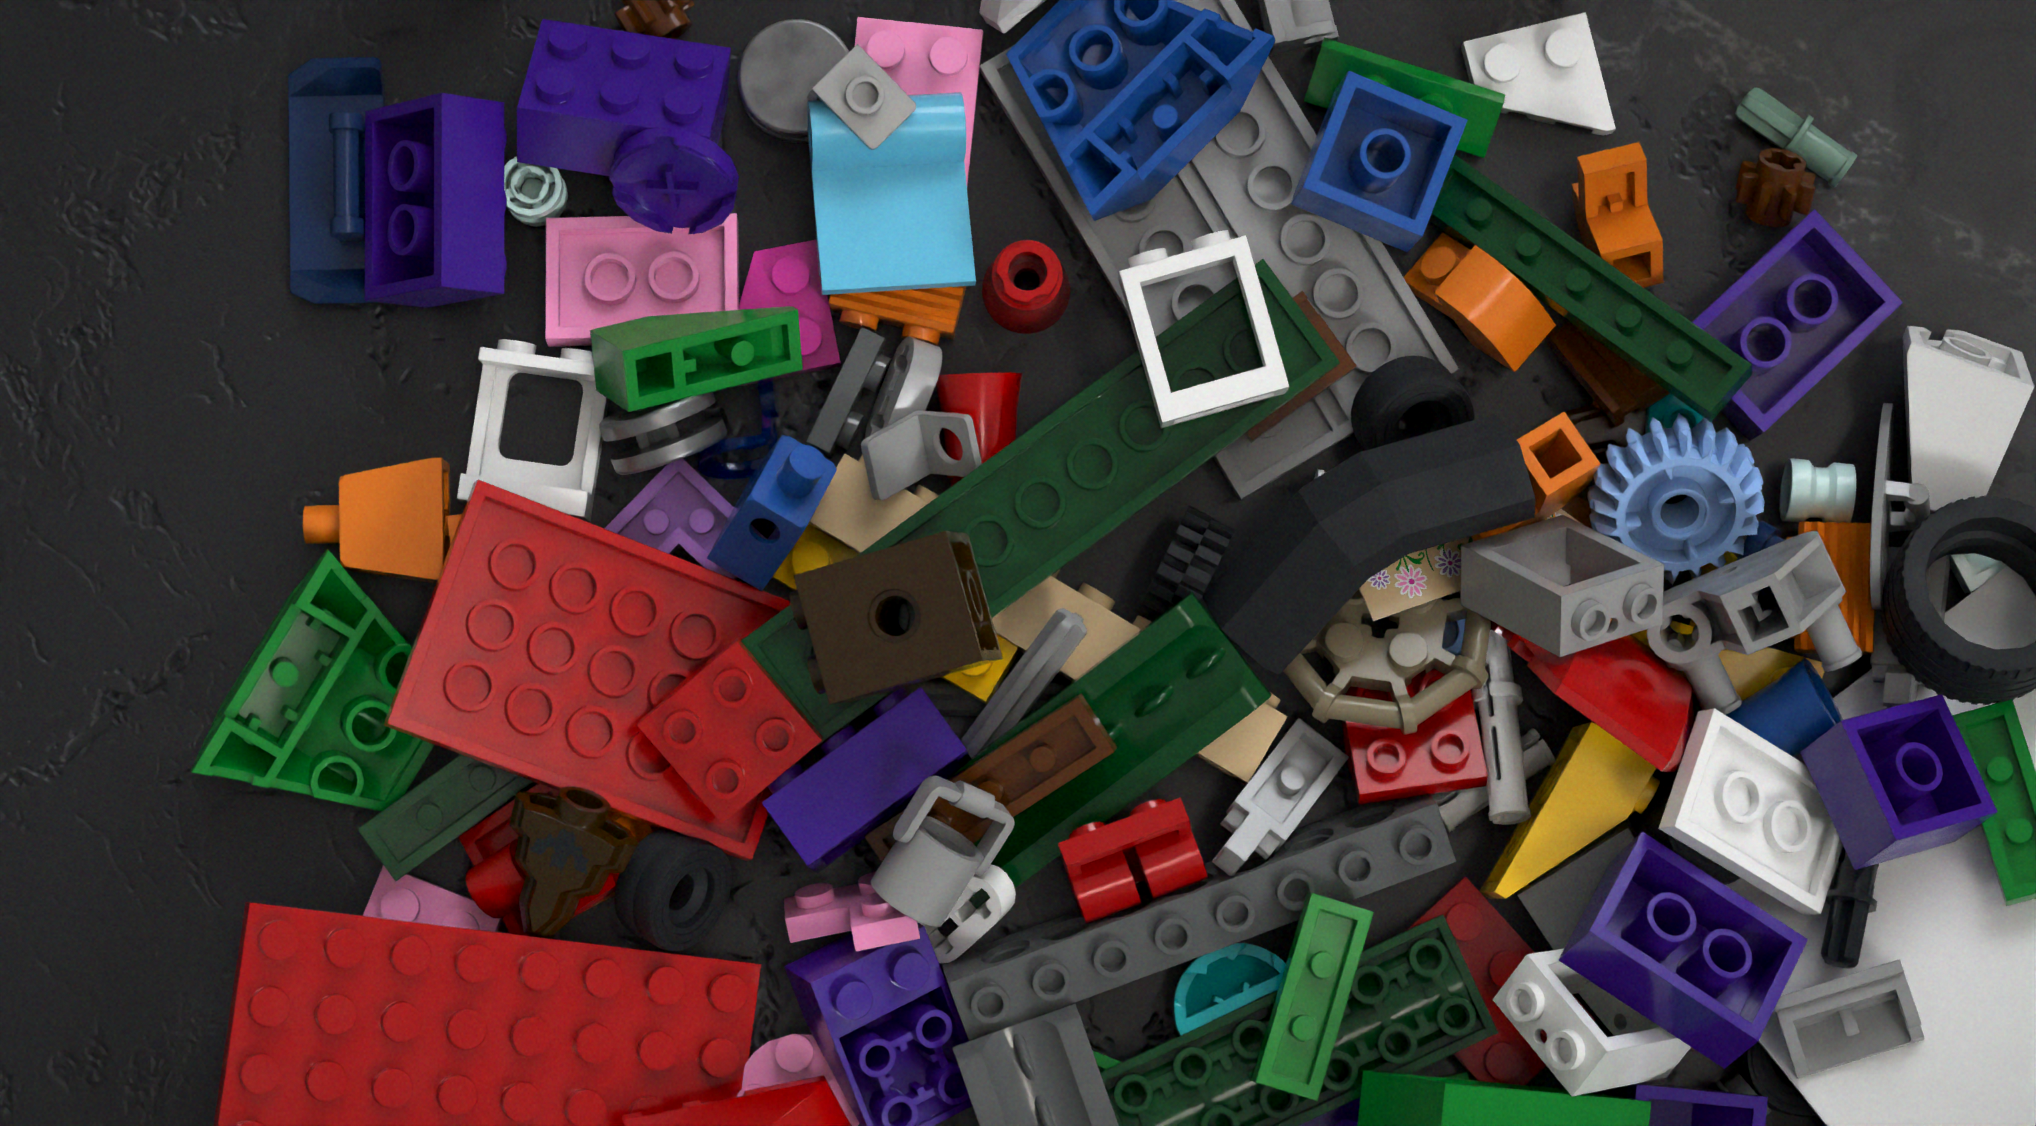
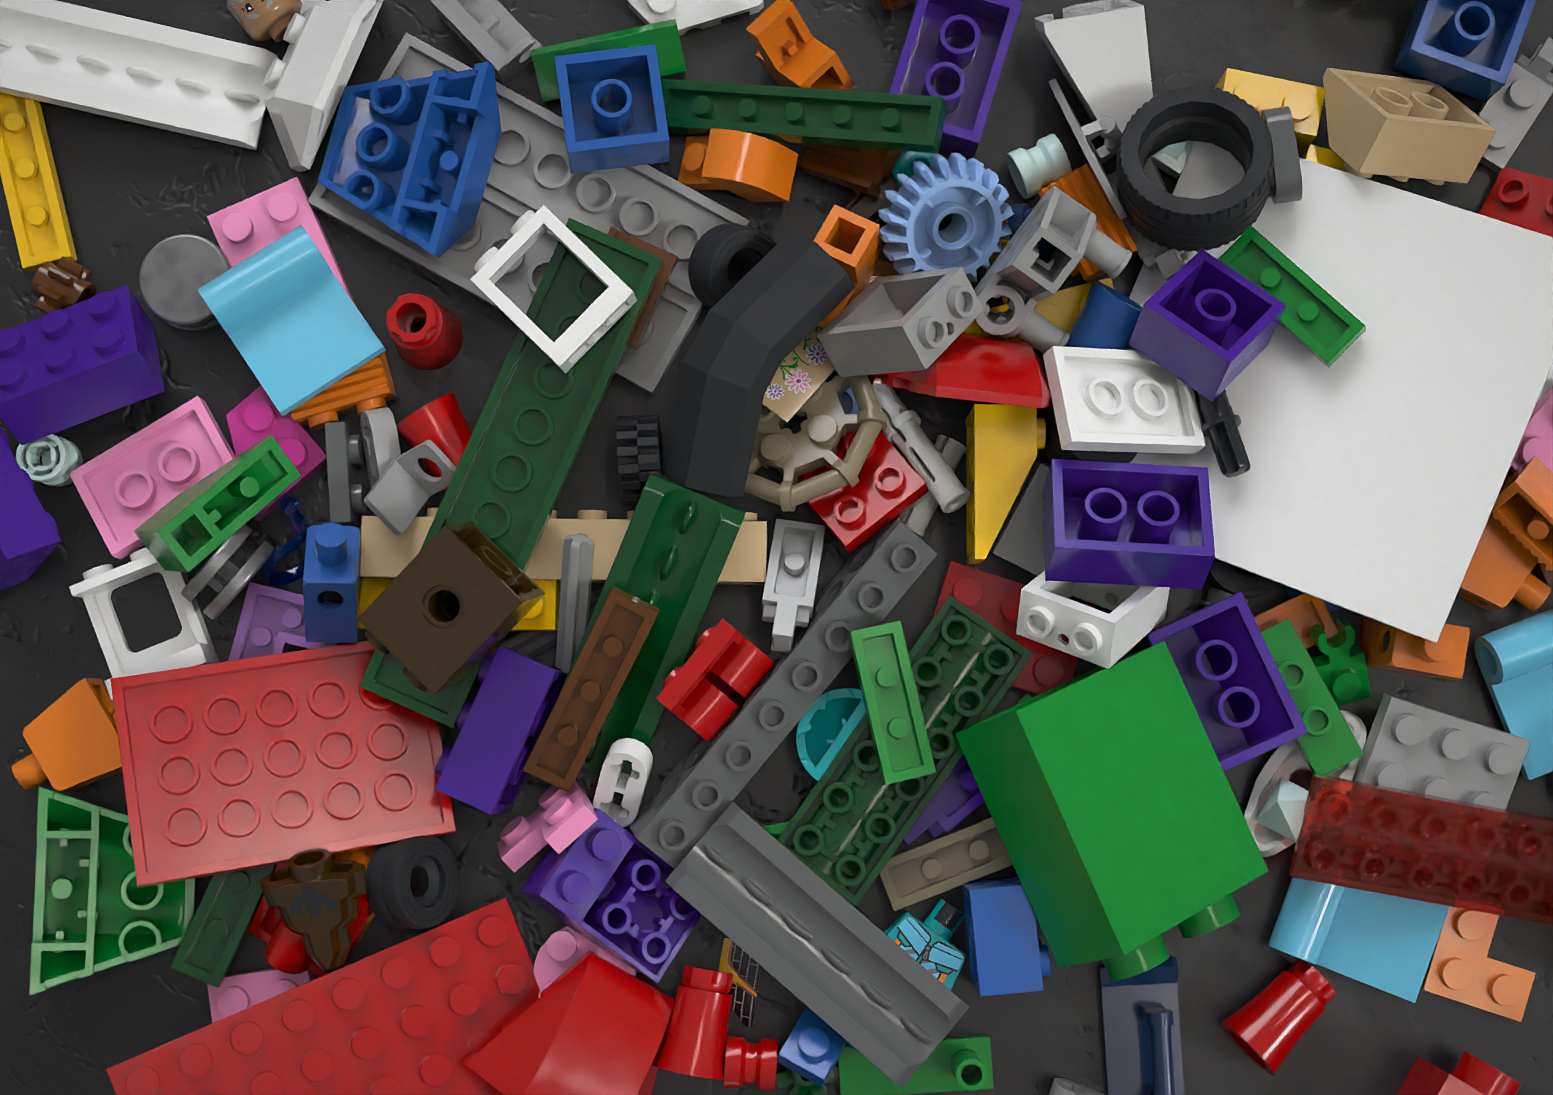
camera: 20 degrees left, 0 degrees up
(674, 180) = (134, 395): dark purple tile -> none
(729, 730) = (384, 751): red plate -> none
(864, 97) = (231, 264): light grey bracket -> none
(932, 860) = (576, 760): light grey piece -> none
(1848, 1018) = (1266, 505): light grey hinge -> none

